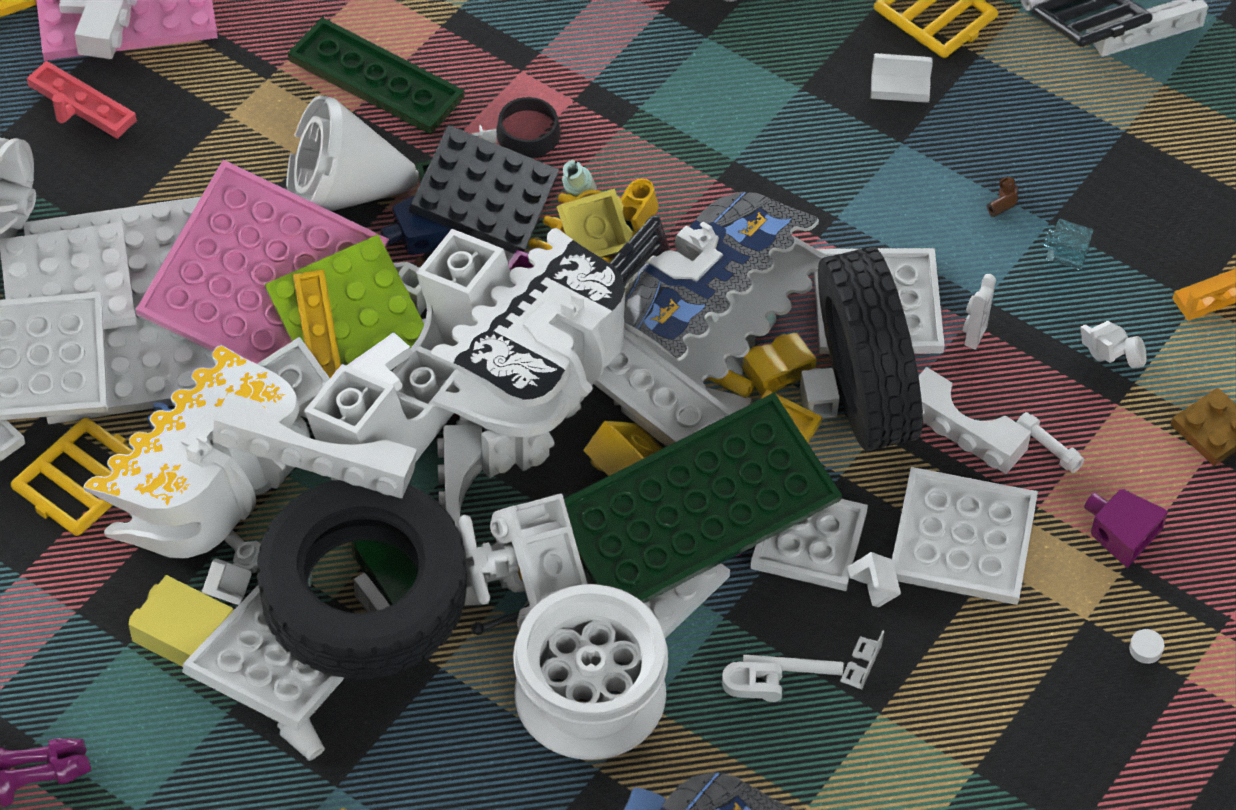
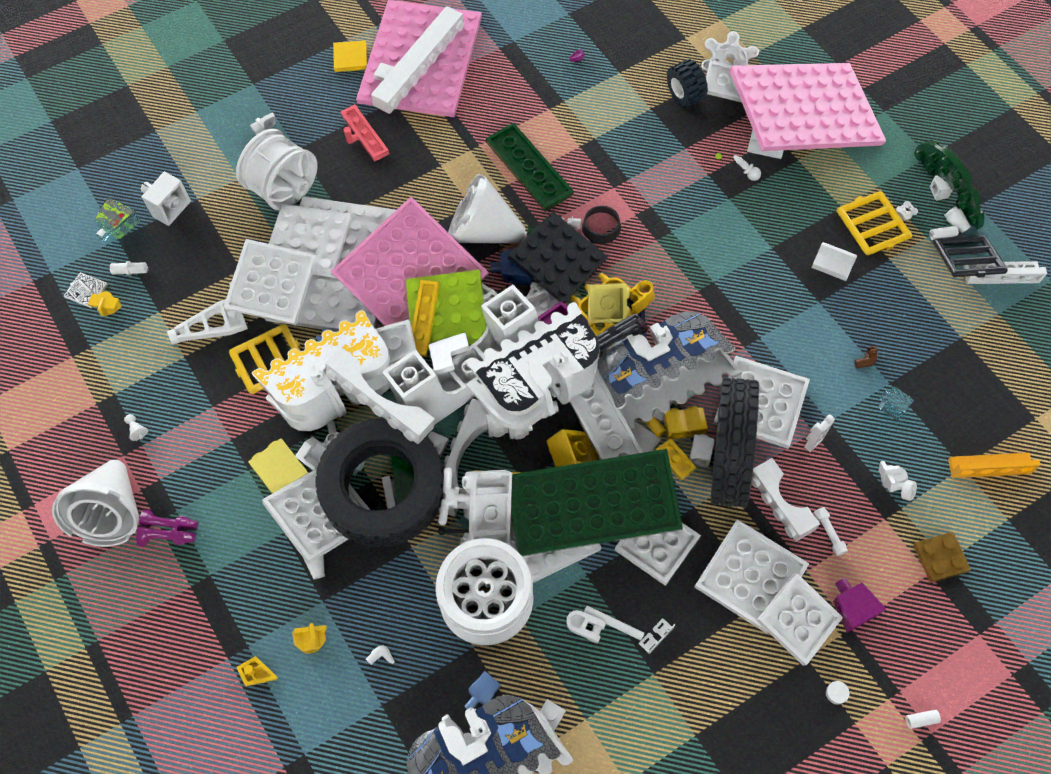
camera: 25 degrees right, 10 degrees up
(577, 178) = (613, 268): light aqua arm -> none
(879, 576) = (688, 586): white panel -> none
(1055, 565) = (799, 619): none -> white plate

